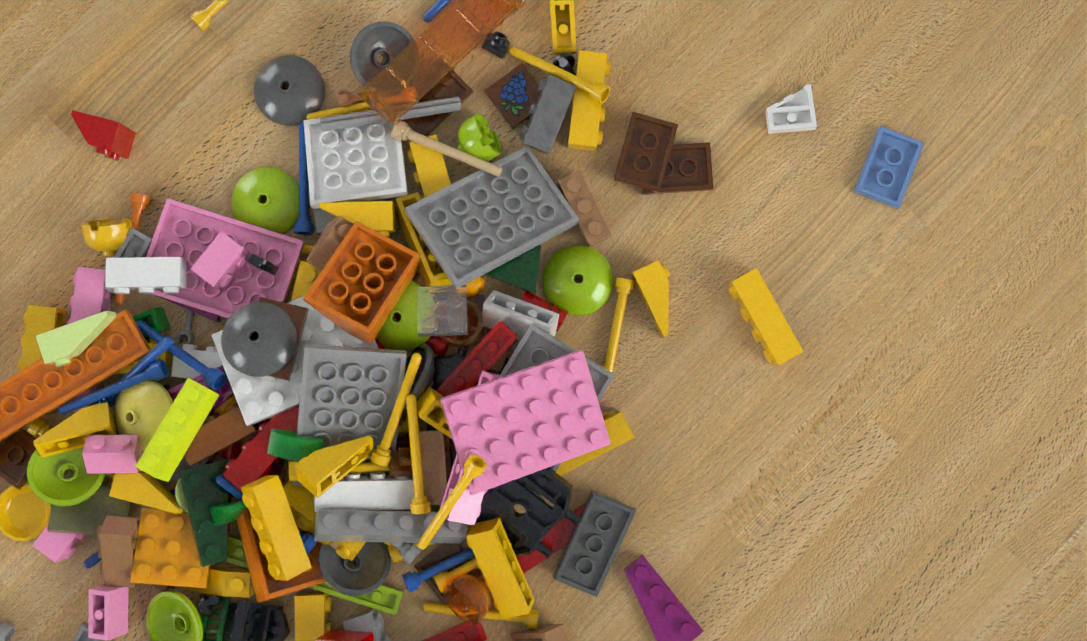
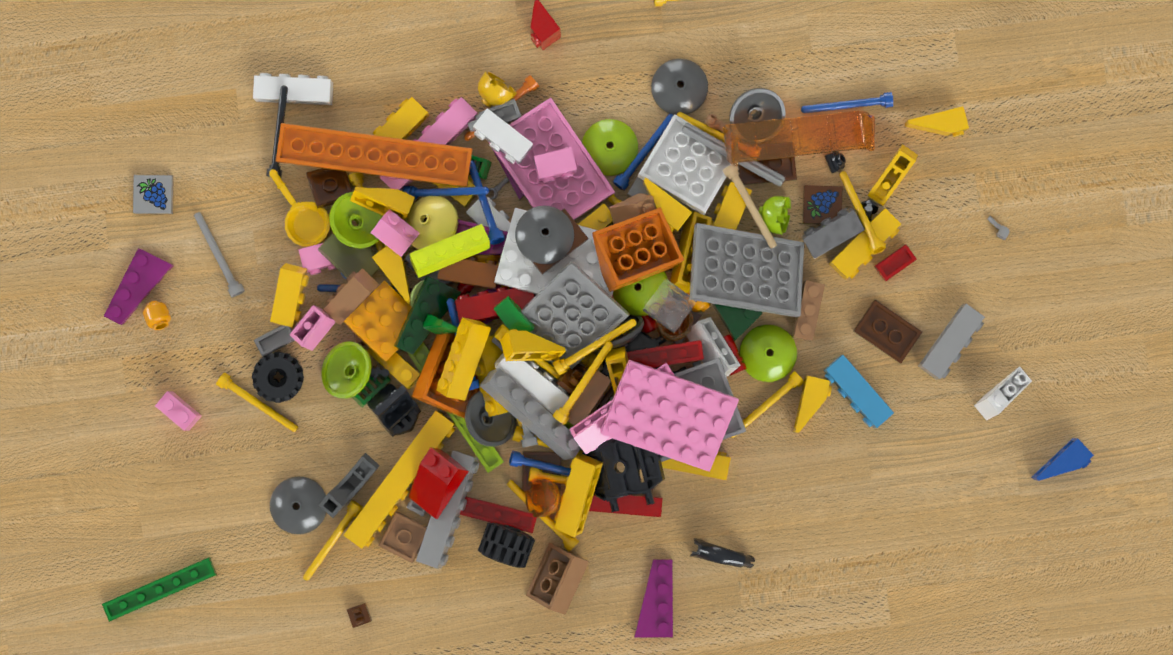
camera: 40 degrees right, 0 degrees up
(57, 597) = (289, 295): none -> yellow brick
(72, 339) = (426, 142): yellowish green slope -> none
(157, 370) = (461, 202): blue piece -> none
(263, 264) = (579, 187): black tile -> none
(474, 467) = (617, 418): yellow piece -> none
(594, 543) = (647, 527): dark grey tile -> none
(631, 95) = (895, 262): none -> red tile
(645, 152) = (876, 306): reddish brown tile -> none
(687, 515) = (721, 555): none -> black piece
(694, 248) = (858, 391): none -> dark azure brick
(745, 129) = (951, 341): none -> light grey brick
(765, 318) = (869, 470): yellow brick -> none
(793, 113) = (990, 355): white wing -> none
(834, 141) = (1003, 394): none -> white slope
(888, 167) = (1025, 438): medium blue tile -> none
(945, 154) = (1067, 459): none -> blue slope

